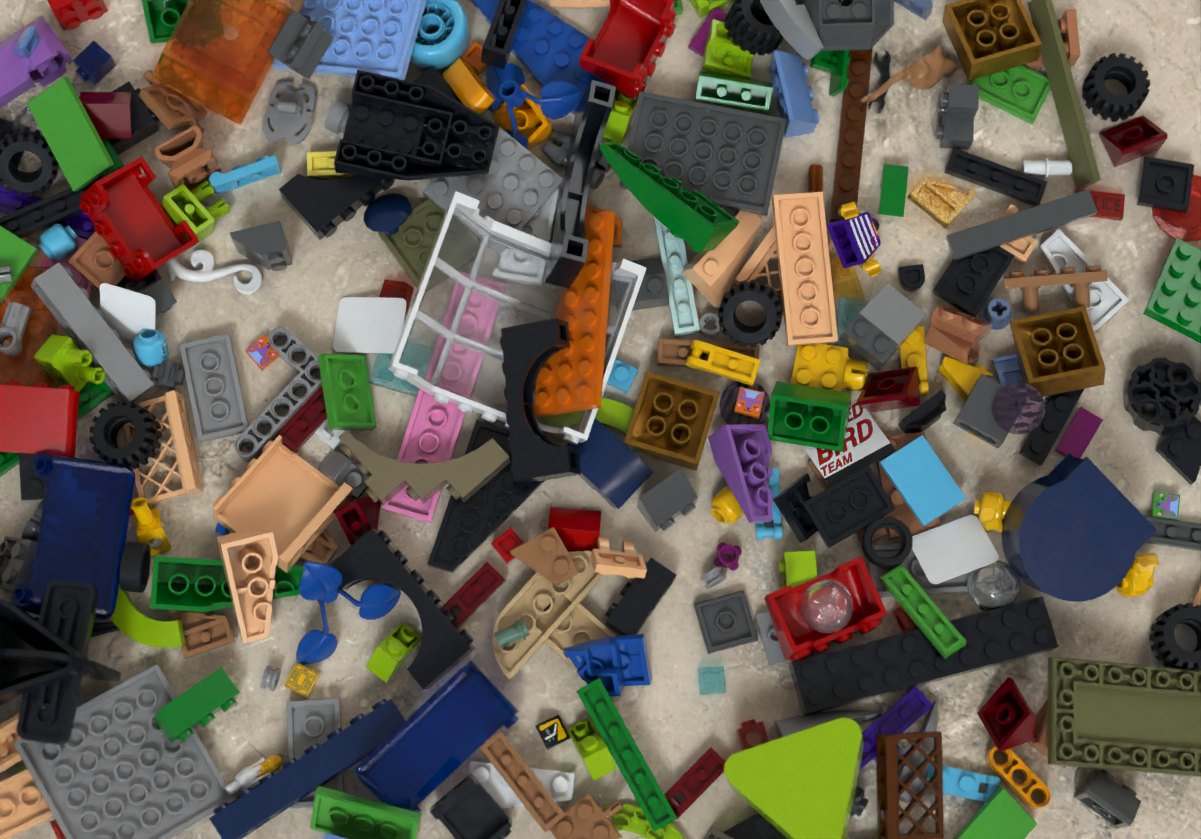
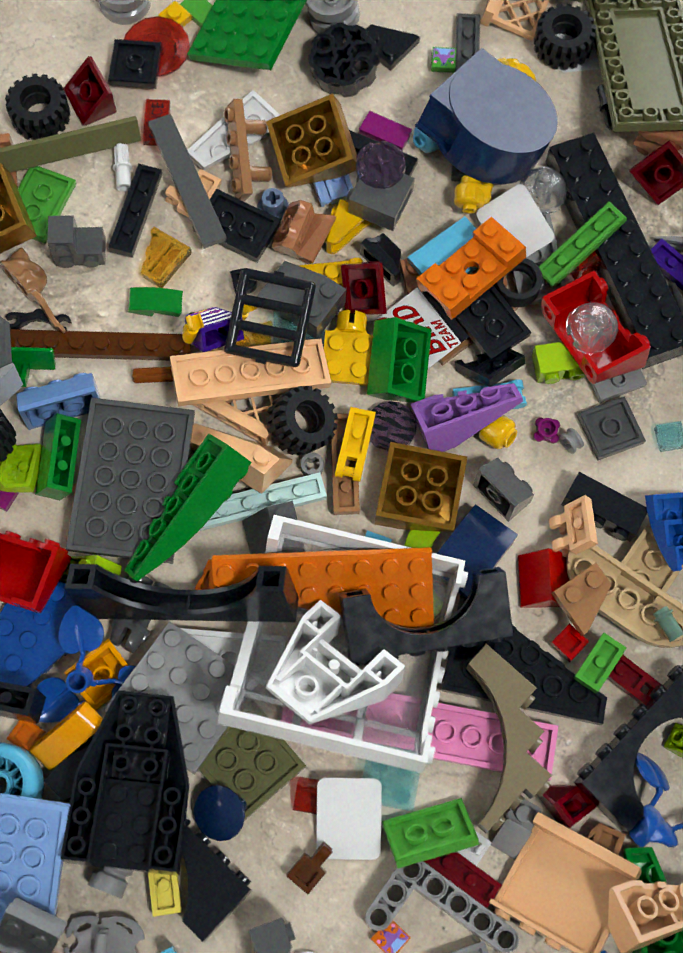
camera: 95 degrees left, 5 degrees down
(329, 287) = (308, 869): none -> reddish brown plate
(483, 566) = (600, 663): none -> bright green plate
(486, 293) = (320, 680): none -> white wedge
(749, 402) = (391, 418): tile -> none
(858, 316) = (242, 299): none -> black bar
(884, 469) = (490, 250): none -> orange piece

